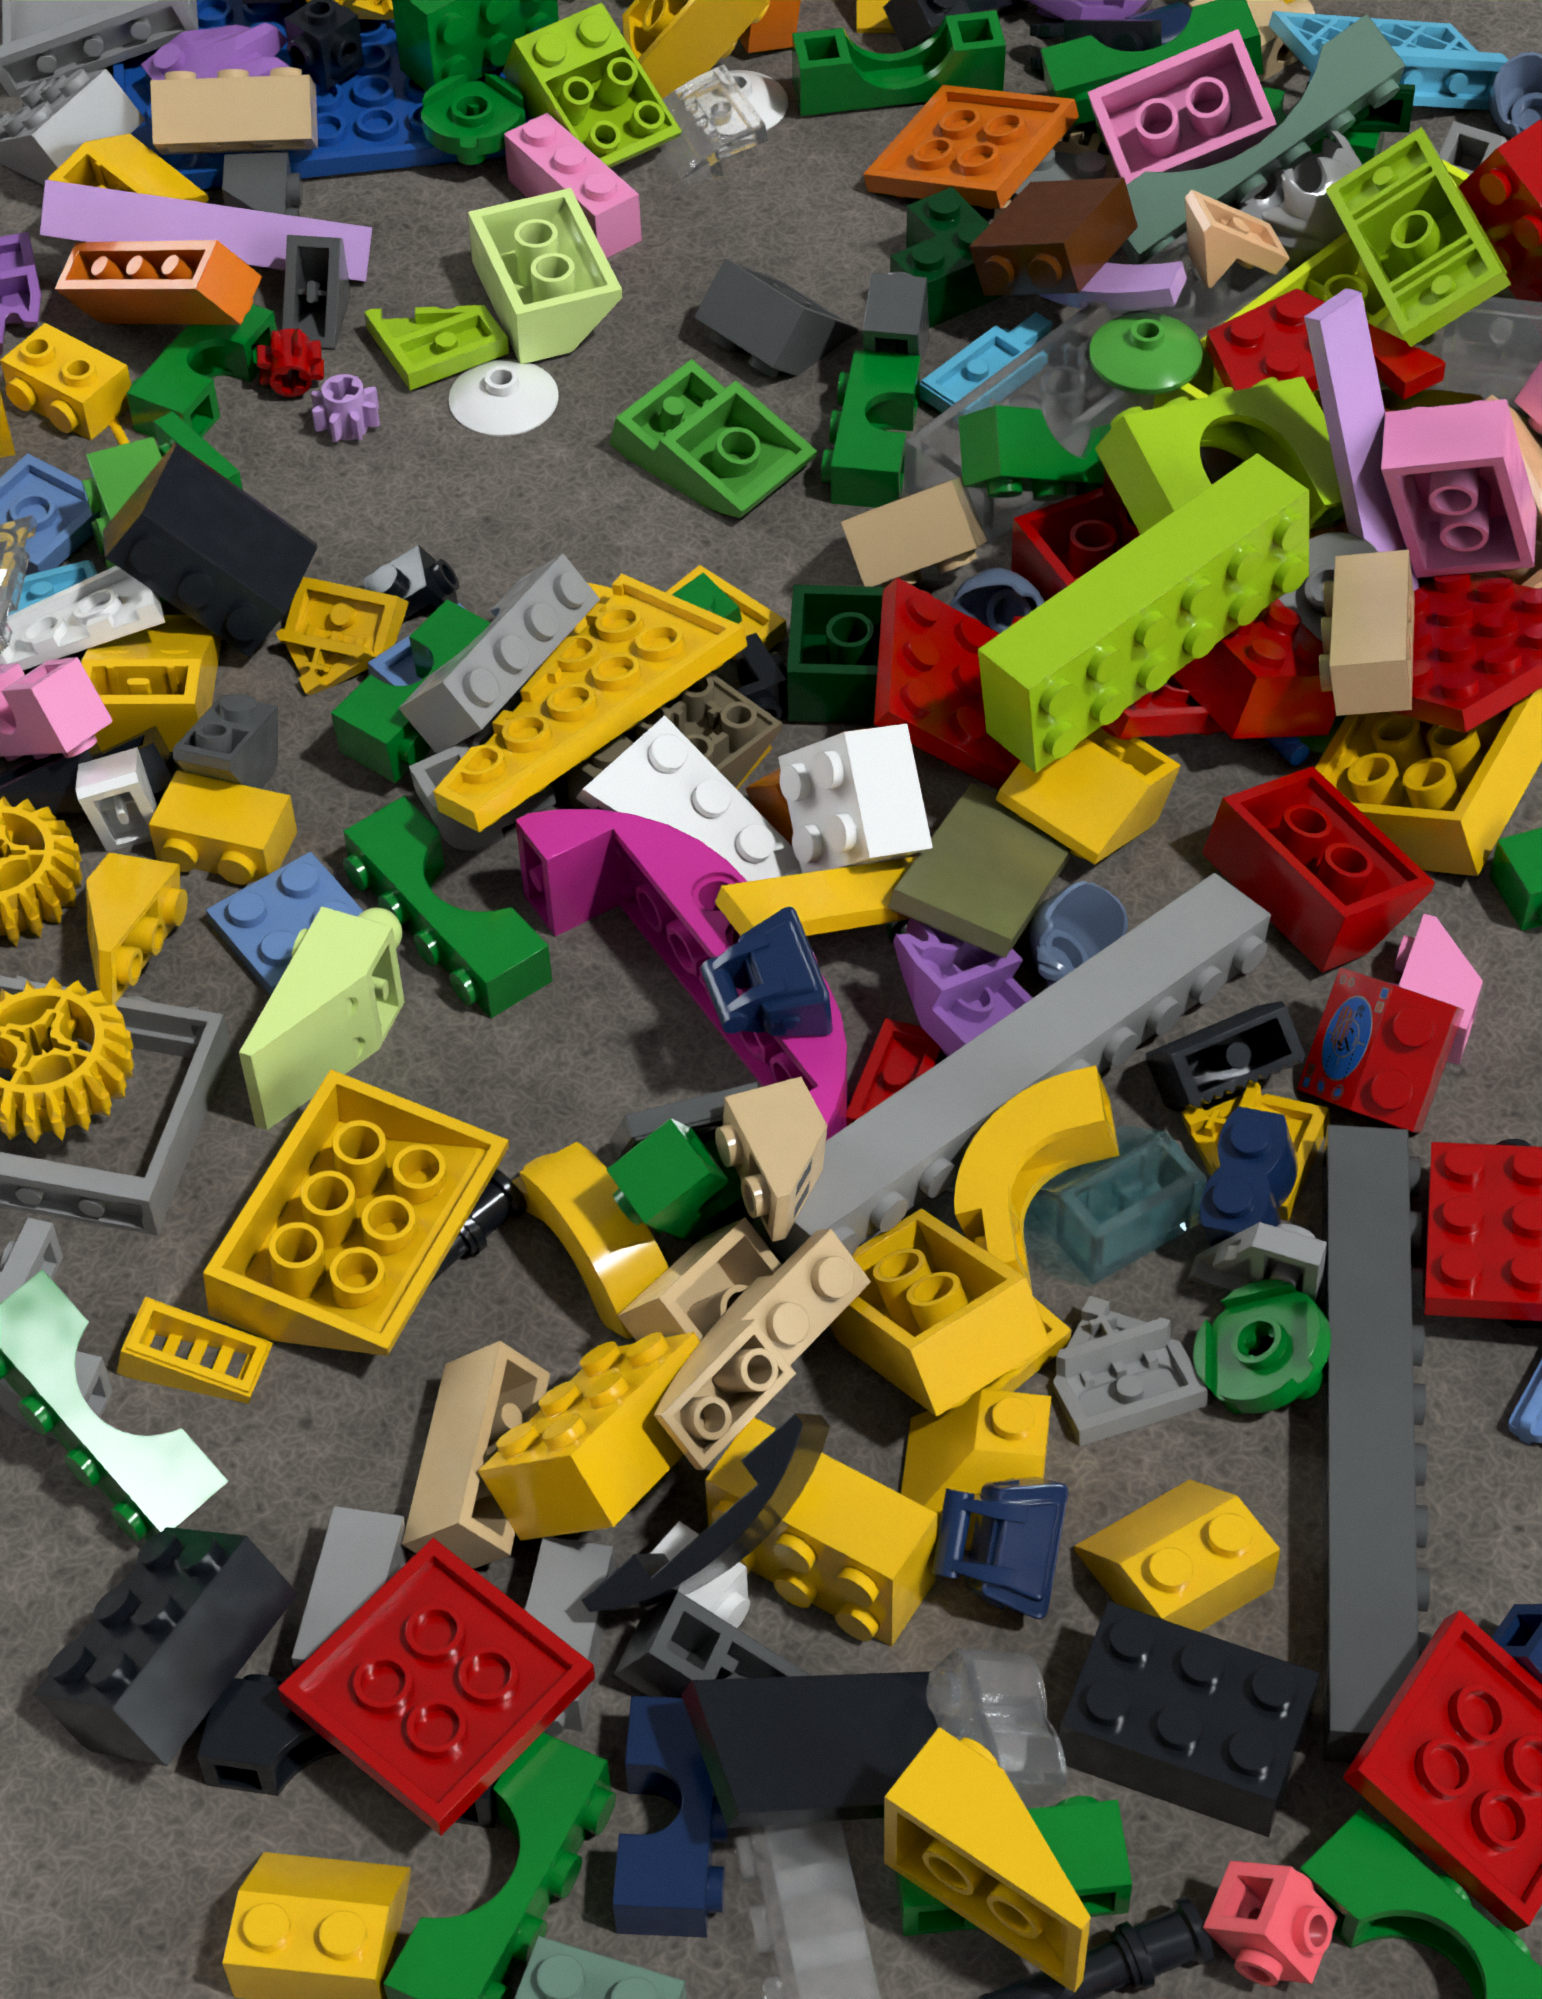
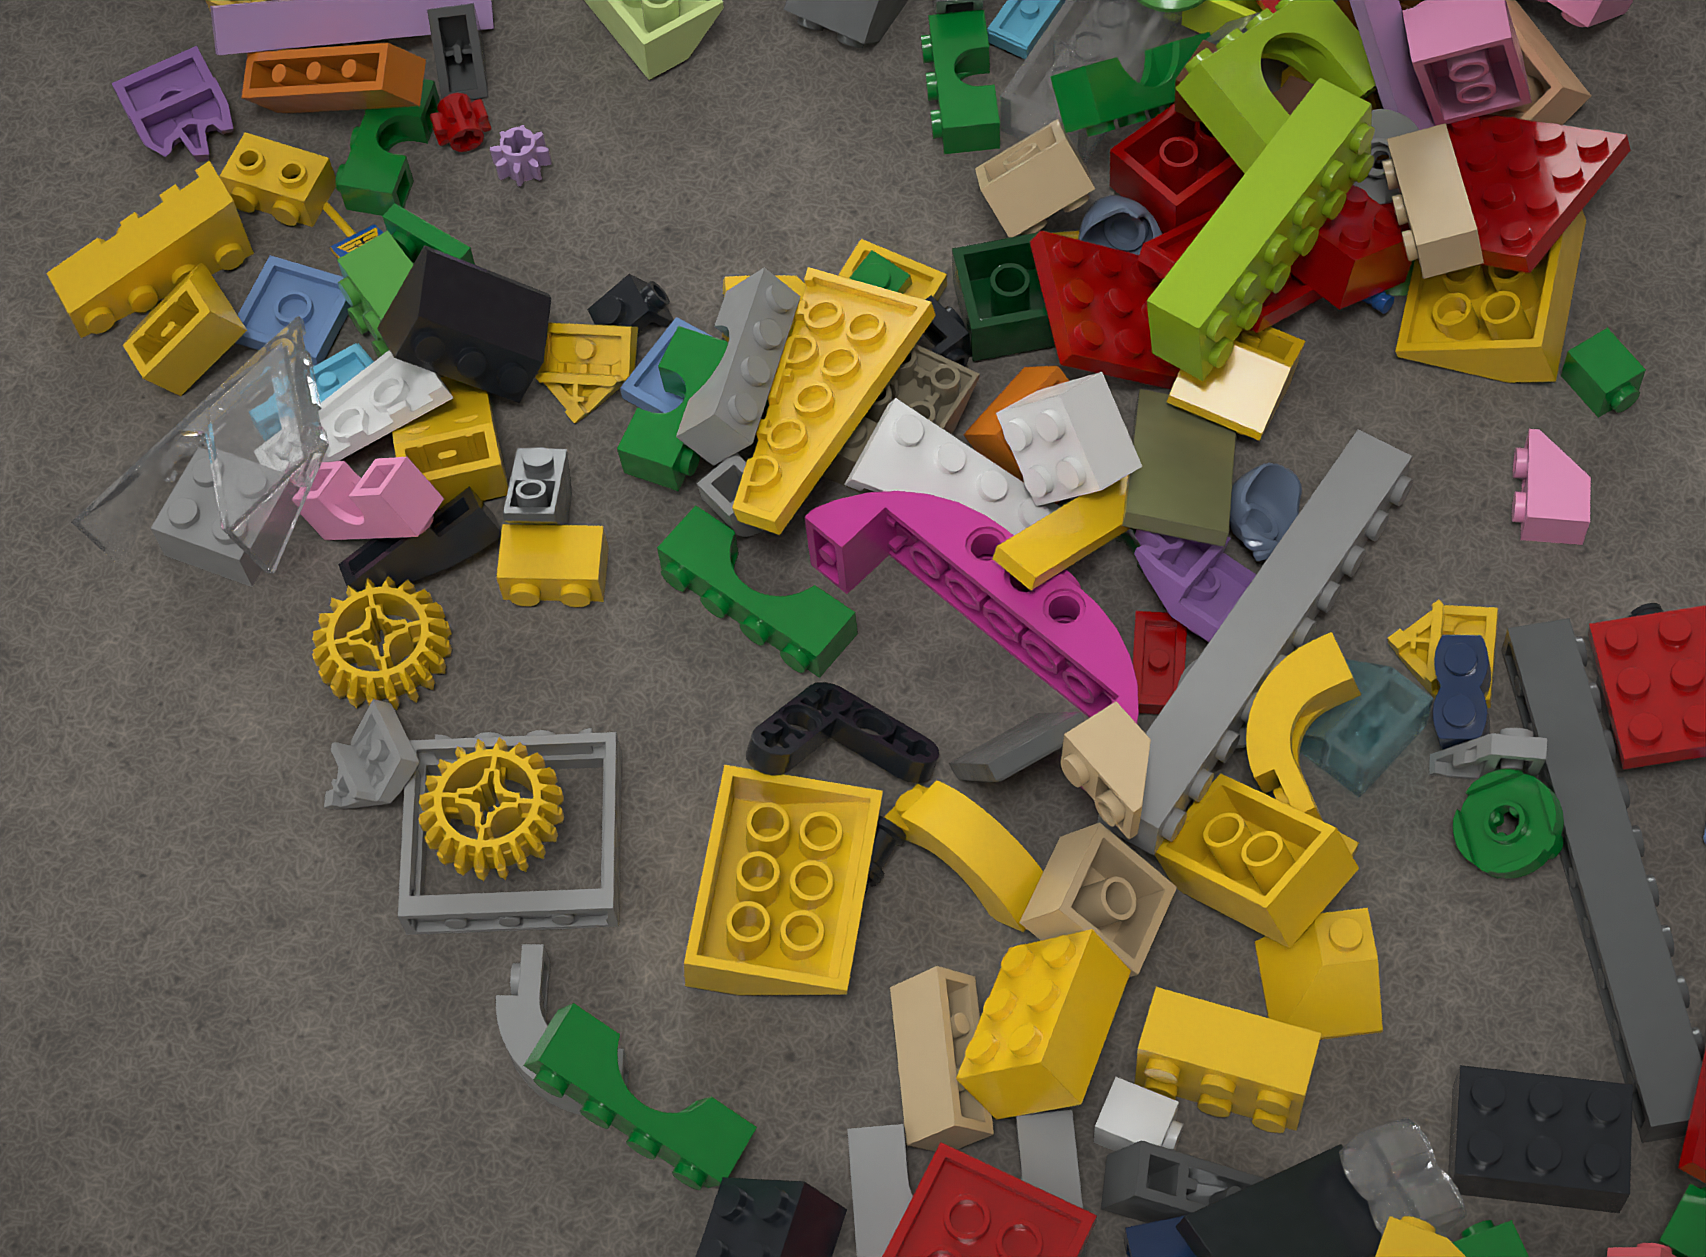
camera: 10 degrees left, 10 degrees up
(117, 798) = (462, 557): white slope -> none
(129, 916) = (506, 665): yellow slope -> none
(163, 1368) = (683, 1040): yellow slope -> none
(270, 913) = (635, 633): medium blue plate -> none
(324, 1011) = (699, 705): yellowish green slope -> none
(437, 341) = (573, 74): lime wing -> none
(495, 1057) = (842, 717): none -> black beam
(503, 397) = (645, 126): white dish -> none
(677, 1184) = (1036, 804): green arch -> none
(710, 441) = (833, 122): bright green slope -> none
(754, 1343) = (1136, 929): tan slope -> none
(780, 1468) = (1118, 1133): black slope -> none
(782, 979) = (1067, 613): dark blue piece -> none
(1011, 1542) = (1368, 1033): dark blue piece -> none
(1123, 1374) = (1405, 867): light grey slope -> none
(1184, 1556) = (1494, 1007): yellow slope -> none
(1225, 1056) = (1411, 585): black brick -> none
(1315, 866) = (1432, 403): red slope -> none
(1380, 1050) = (1528, 554): red slope -> none

